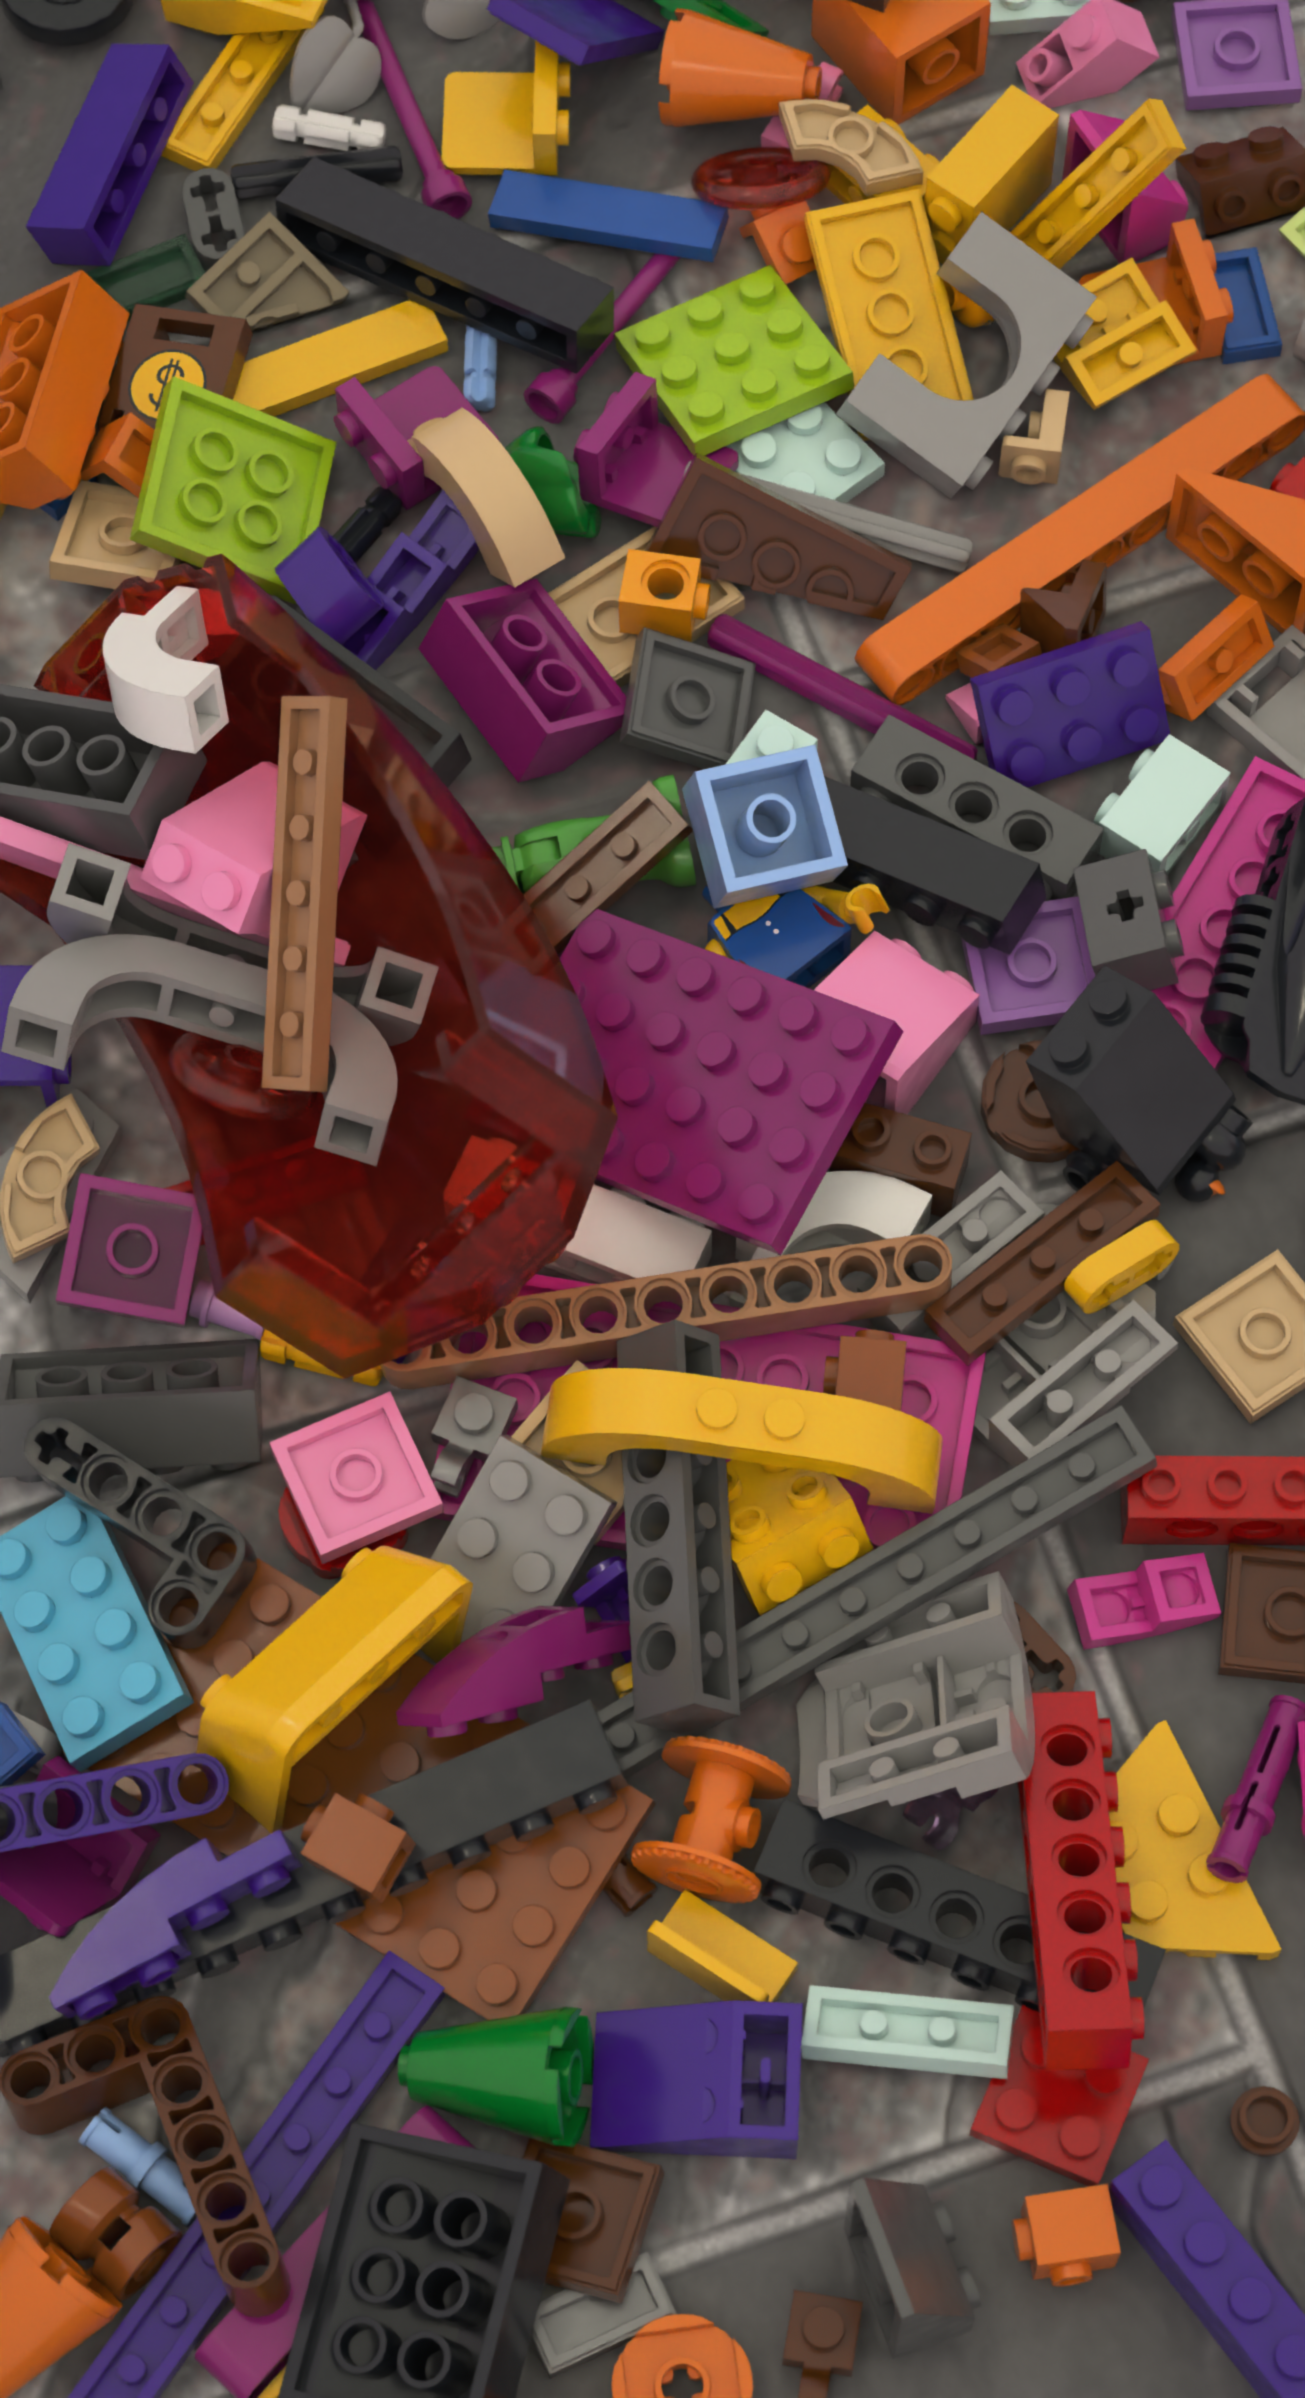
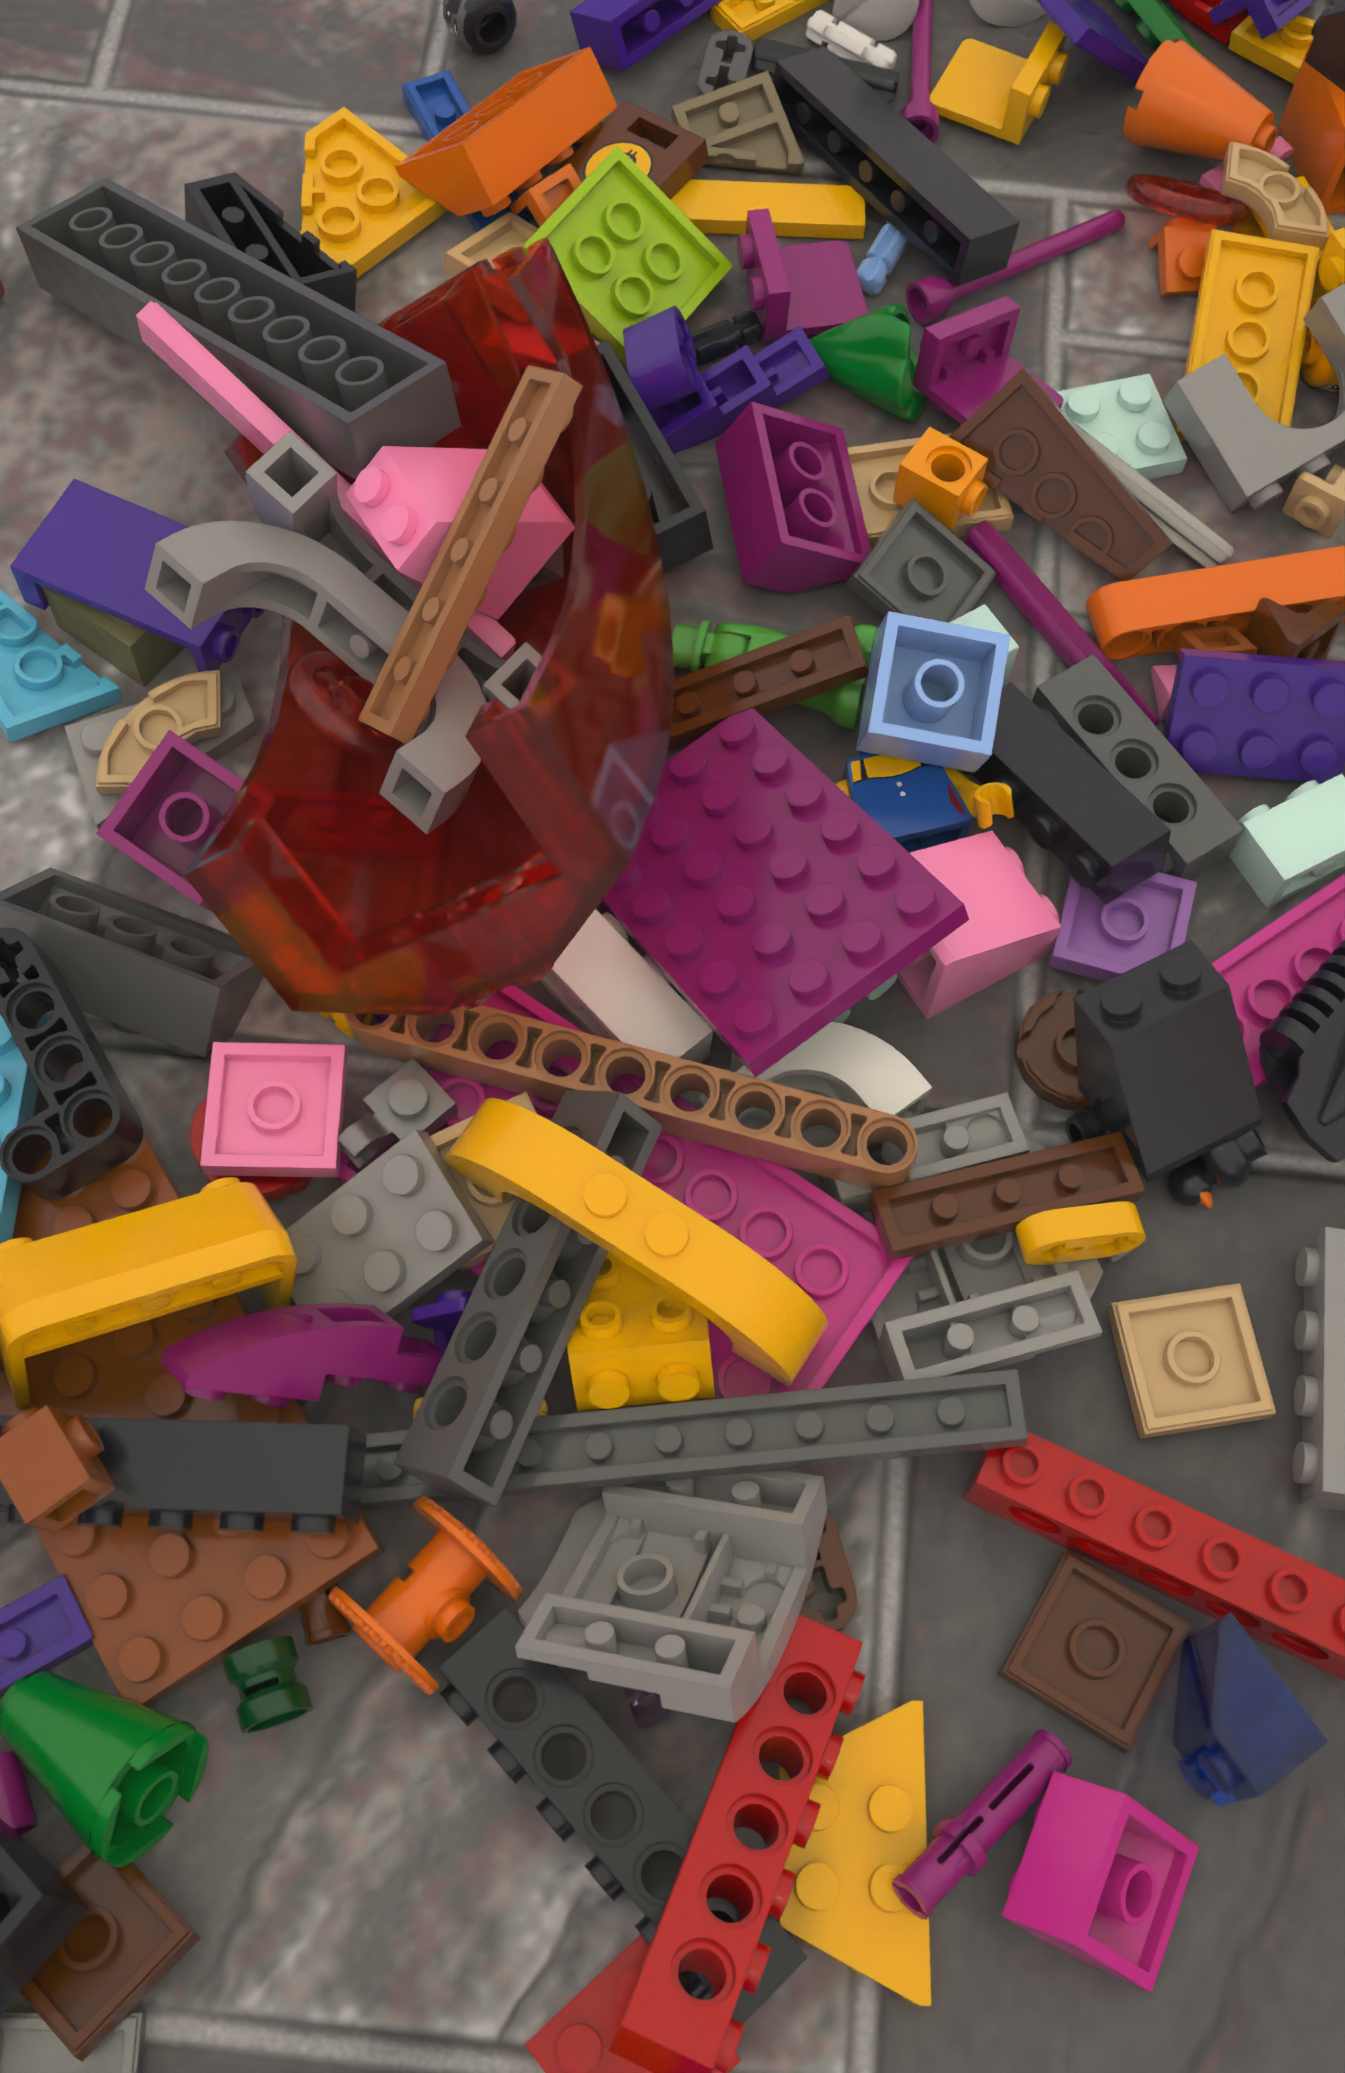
camera: 20 degrees right, 0 degrees up
(151, 276) = (651, 89): clear green tile -> none
(155, 683) = (444, 316): white arch -> none
(489, 494) = (833, 341): tan arch -> none
(608, 215) = (1047, 185): blue tile -> none
(612, 1957) = (267, 1684): none -> dark green wheel
(698, 2079) = (281, 1860): dark purple slope -> none
(719, 1953) = (374, 1733): yellow panel -> none
(735, 361) = (1097, 329): lime plate -> none
(868, 1368) = (788, 1227): dark orange brick -> none
(908, 1150) = (928, 1035): reddish brown brick -> none
(908, 2032) = (512, 1909): light aqua plate -> none
(1127, 921) = (1230, 916): dark grey brick -> none
(1145, 1602) = (957, 1567): dark pink slope -> none

